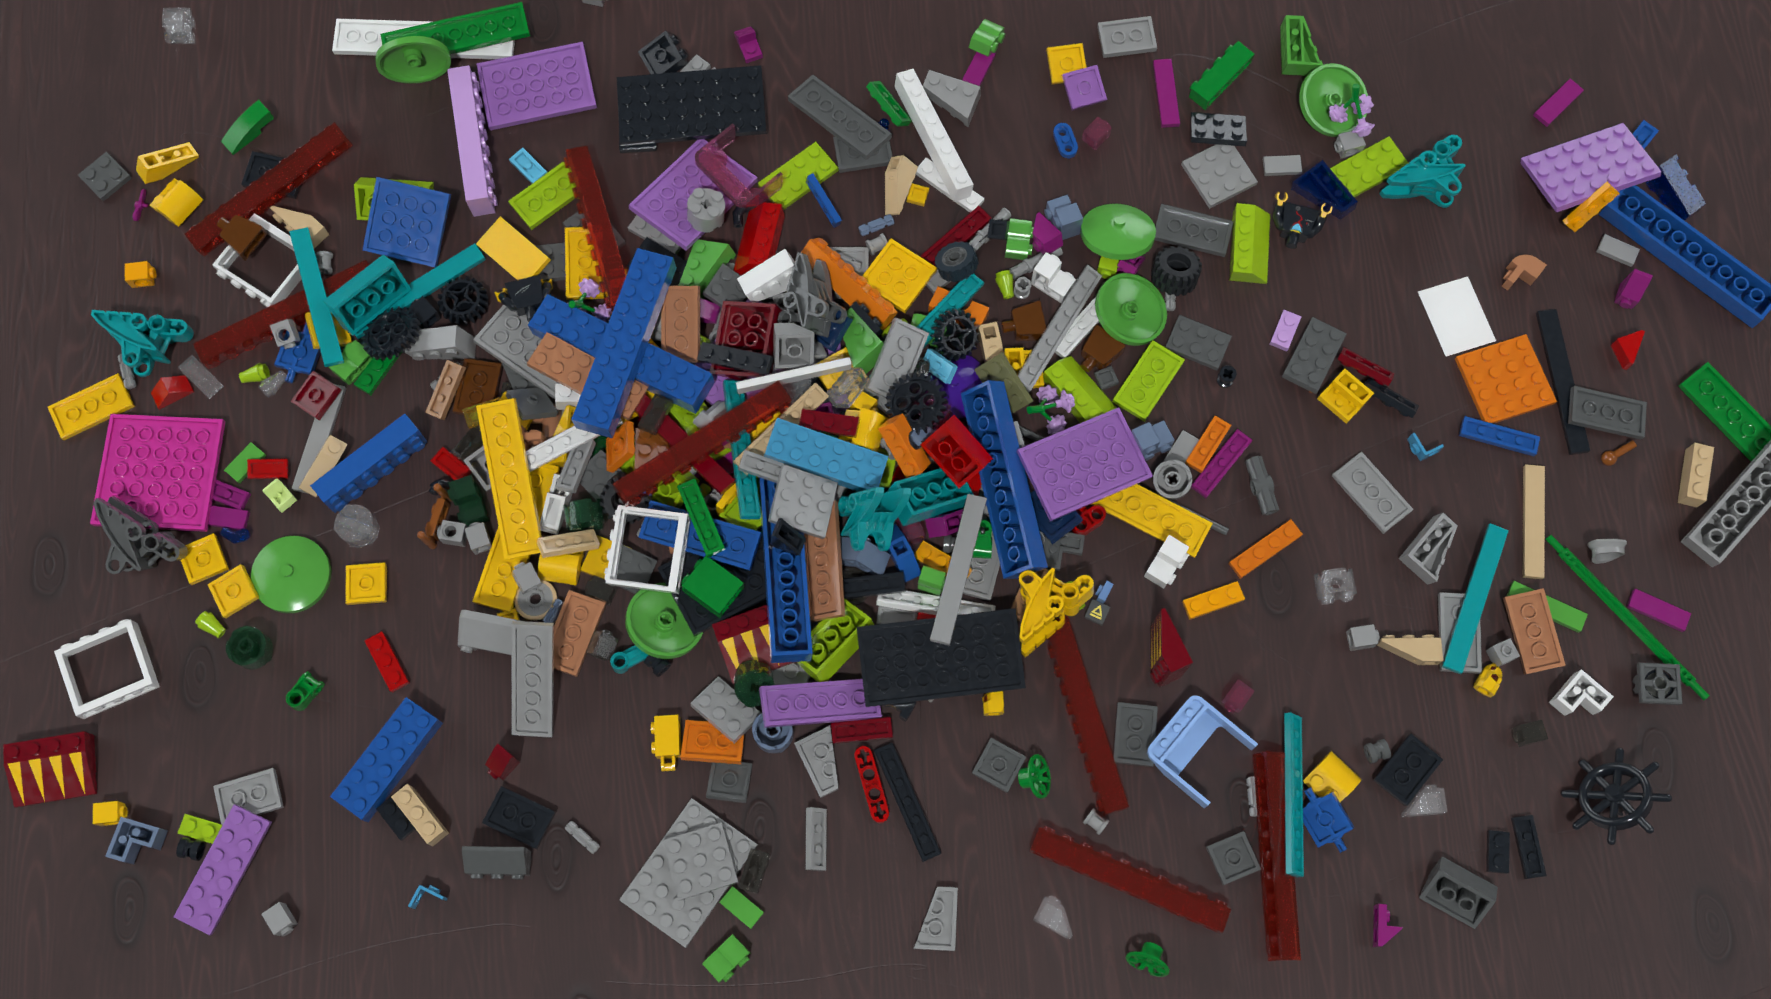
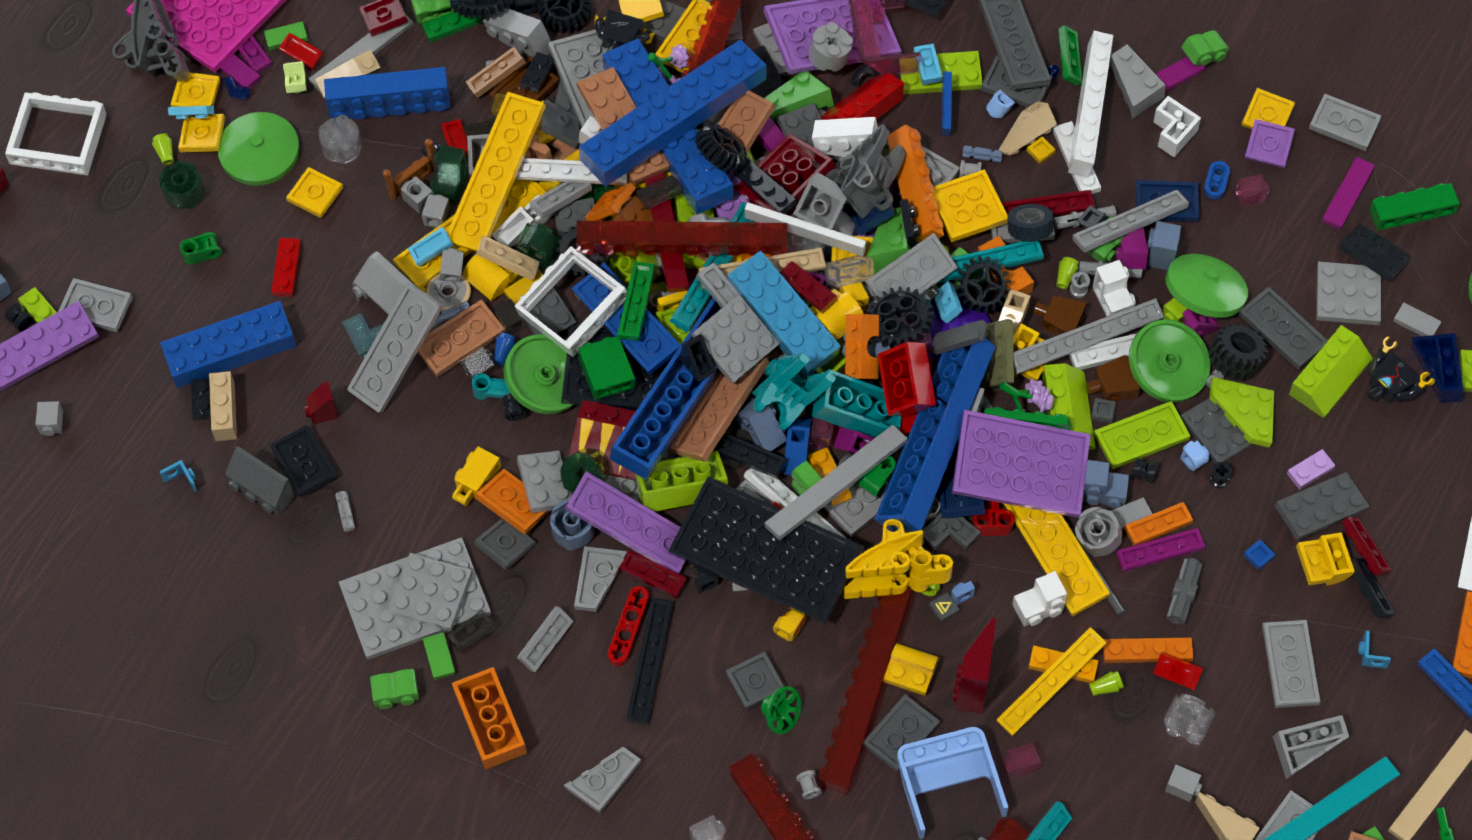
camera: 35 degrees right, 10 degrees down
(206, 583) = (183, 111): none -> medium azure plate
(480, 369) = (537, 72): none -> black plate
(494, 682) = (360, 334): none -> clear light blue plate
(498, 572) = (430, 246): none -> medium azure tile
(614, 618) = (503, 345): none -> blue cone
(682, 348) = (721, 148): none -> black gear
(791, 179) = (928, 65): none -> medium azure plate
(819, 934) = (489, 718): none -> orange brick
(863, 181) = (998, 109): none -> light blue plate
(973, 392) = (959, 337): none -> dark grey tile
(1007, 111) = (1178, 125): none -> white brick
(1028, 214) = (1130, 221): none -> light grey tile
(1040, 179) = (1150, 190): none -> dark blue plate
(1057, 426) = (1057, 420): none -> green plate
(1108, 678) = (910, 669): none -> yellow brick
(1169, 407) = (1141, 466): none -> black wheel
(1197, 373) = (1194, 455): none -> light blue plate
(1211, 312) = (1247, 408): none -> lime plate
(1218, 621) = (1051, 681): none -> yellow plate
(1256, 595) = (1107, 684): none -> lime cone
(1295, 422) = (1259, 555): none -> blue plate
(1299, 551) = (1178, 670): none -> red plate

